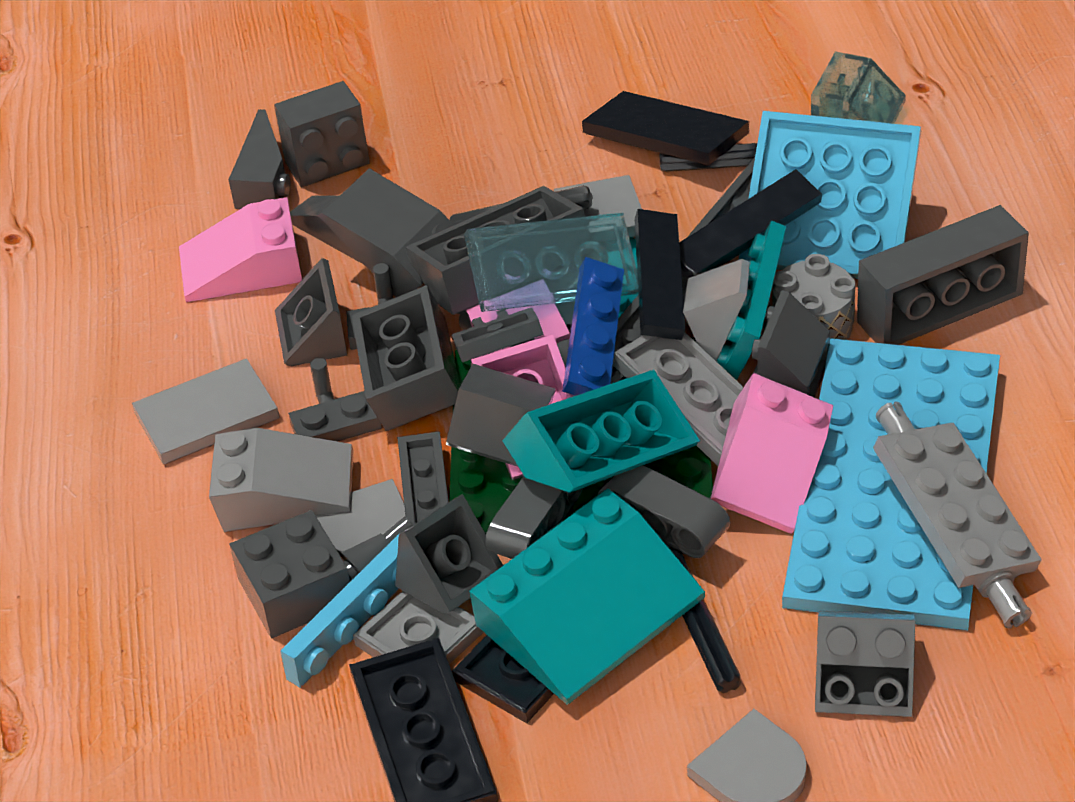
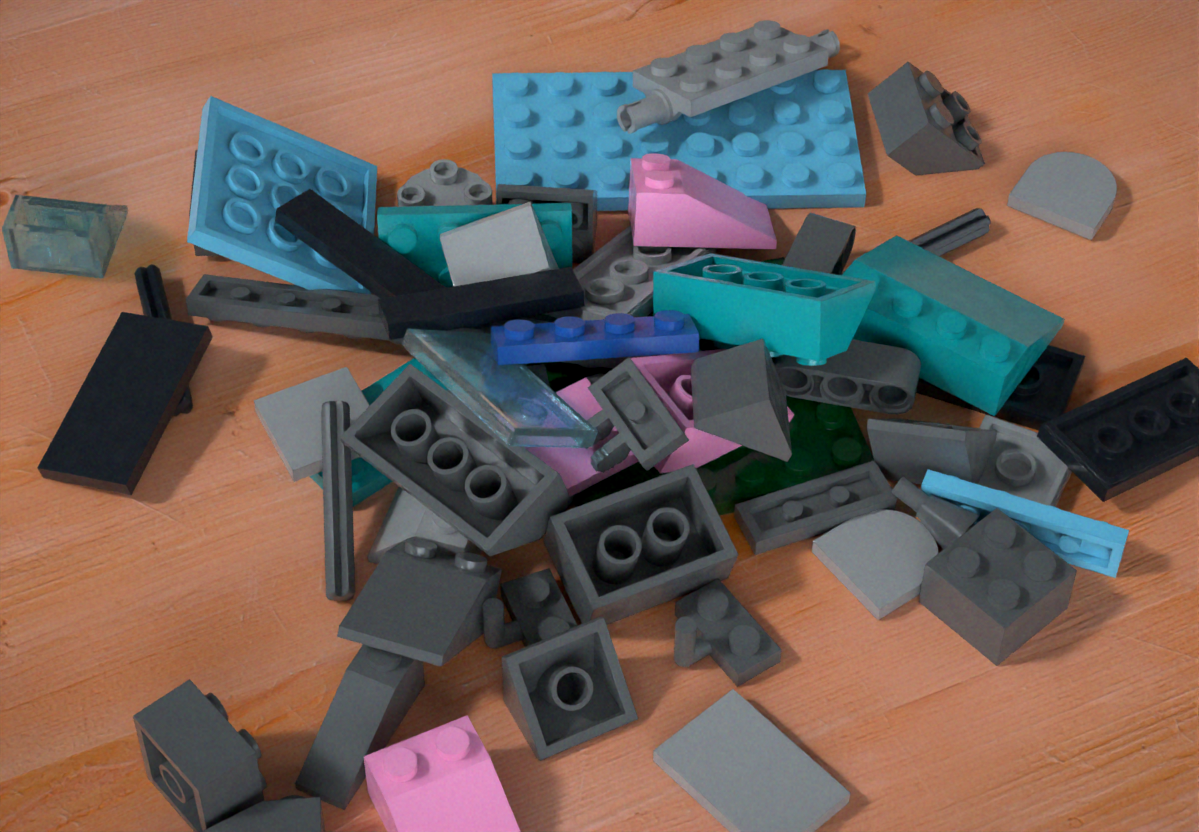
camera: 110 degrees left, 5 degrees up
(276, 475) = (861, 645): light grey slope -> none
(942, 277) = (394, 103): dark grey brick -> none

